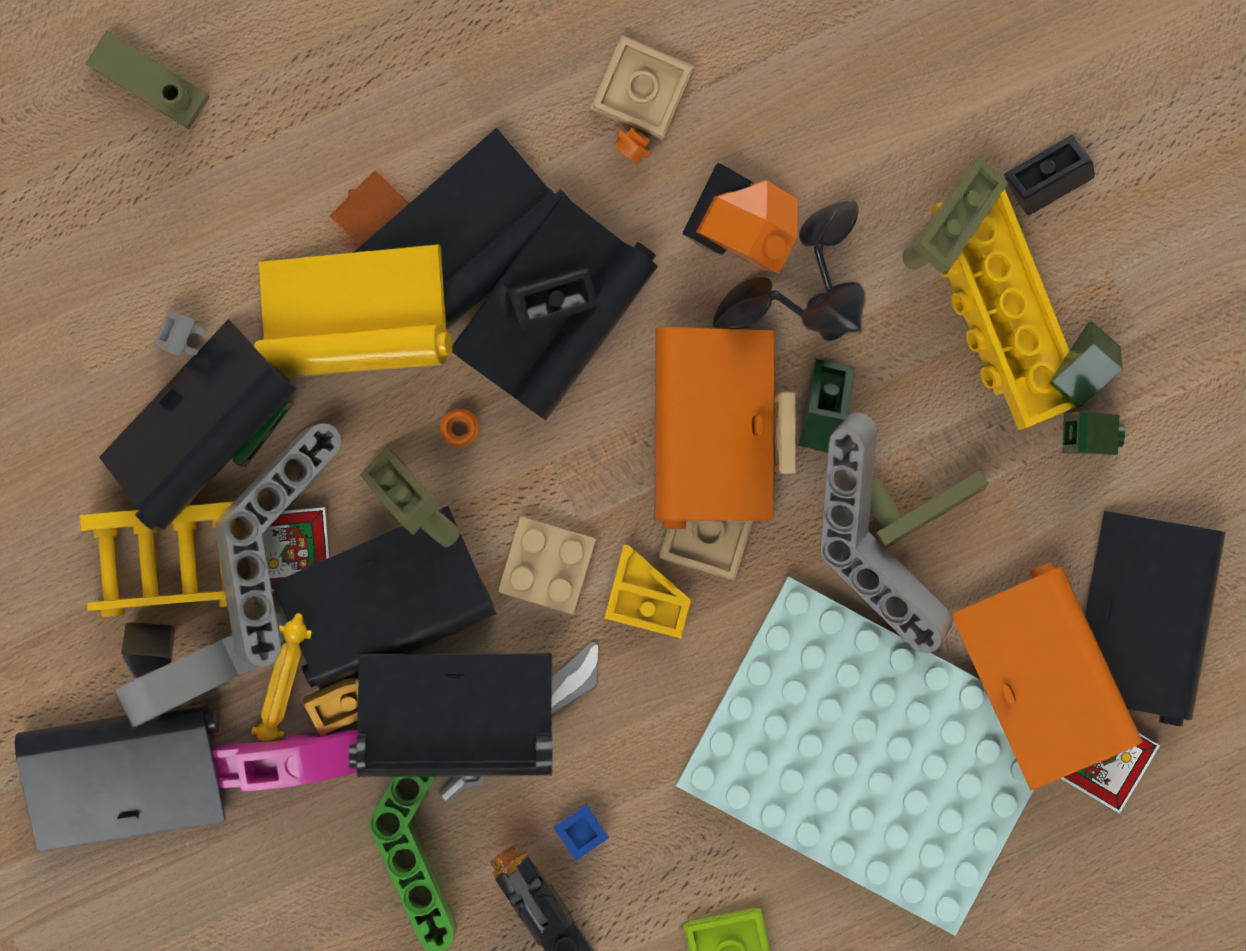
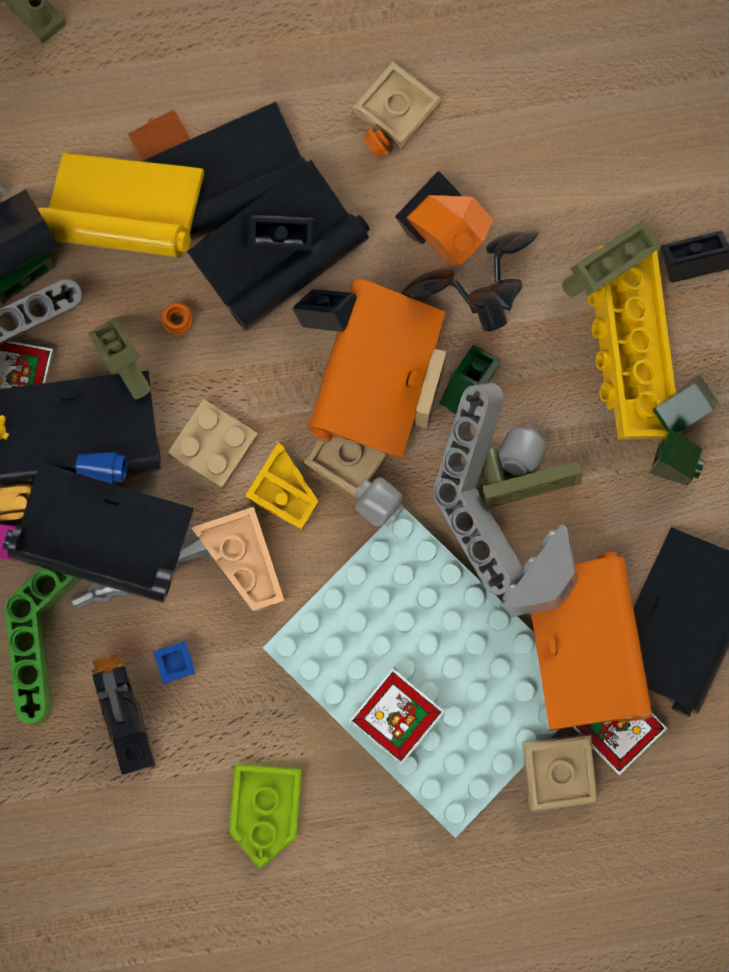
camera: 20 degrees right, 10 degrees down
(432, 638) = (103, 466): none -> blue cone
(623, 688) = (243, 556): none -> light nougat wing
(633, 370) = (325, 309): none -> black slope
(761, 581) = (378, 502): none -> light grey head
(853, 823) = (397, 716): none -> tile
(910, 473) = (522, 451): none -> light grey head
(981, 618) = (545, 578): none -> light grey slope
(1052, 830) = (559, 772): none -> tan tile

